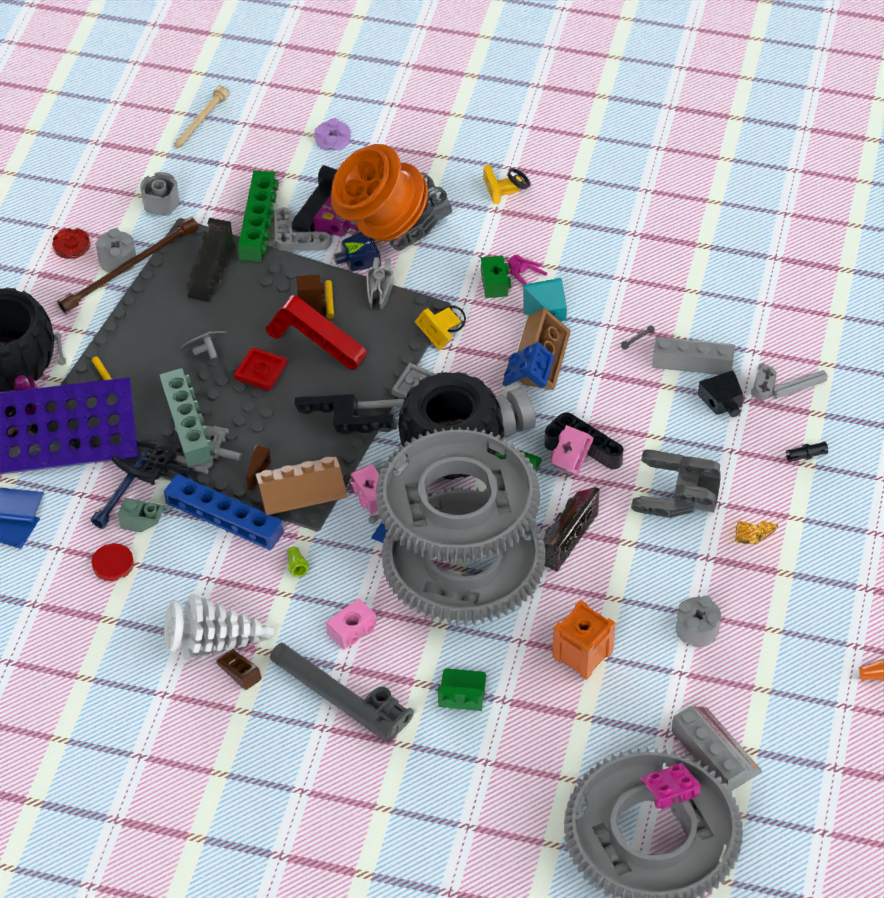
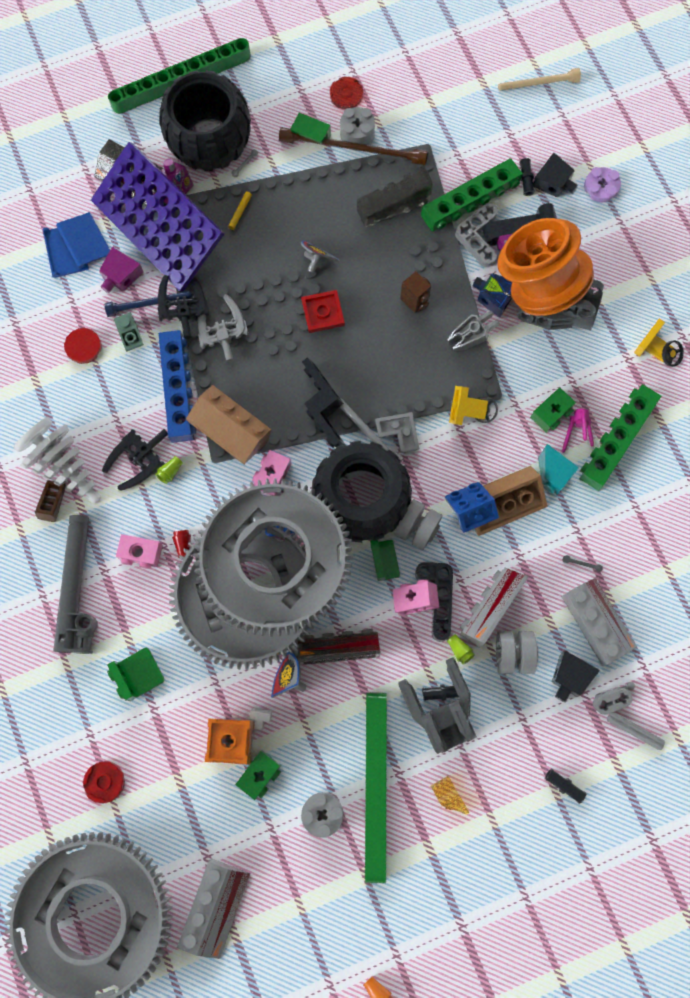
camera: 55 degrees right, 25 degrees up
(69, 491) = (119, 271): none -> magenta torso
(81, 280) = (311, 128): none -> green panel
(160, 193) = (436, 113): light grey brick -> none
(185, 417) = (224, 305): sand green brick -> none
(259, 462) = (230, 378): reddish brown slope -> none
(259, 572) = (143, 451): none -> black bar
(279, 174) = (527, 177): none -> black pin
(297, 157) = (555, 177): none -> black torso
(318, 330) = (378, 297): red beam -> none
(329, 299) = (434, 305): yellow piece -> none
(371, 588) = (181, 540): none -> red cone
(537, 772) = (103, 782): none -> red tile
(556, 250) = (647, 400): none -> green brick
(560, 577) = (288, 676): none -> shield
(623, 406) = (493, 606): none -> light grey slope
(628, 649) = (248, 781): none -> green brick
(635, 452) = (460, 649): none -> lime cone
(665, 485) = (439, 693): none -> black pin
(670, 784) = (122, 916): dark pink hinge -> none
(673, 412) = (522, 651): none -> light grey wheel
(706, 574) = (375, 787): none -> green beam

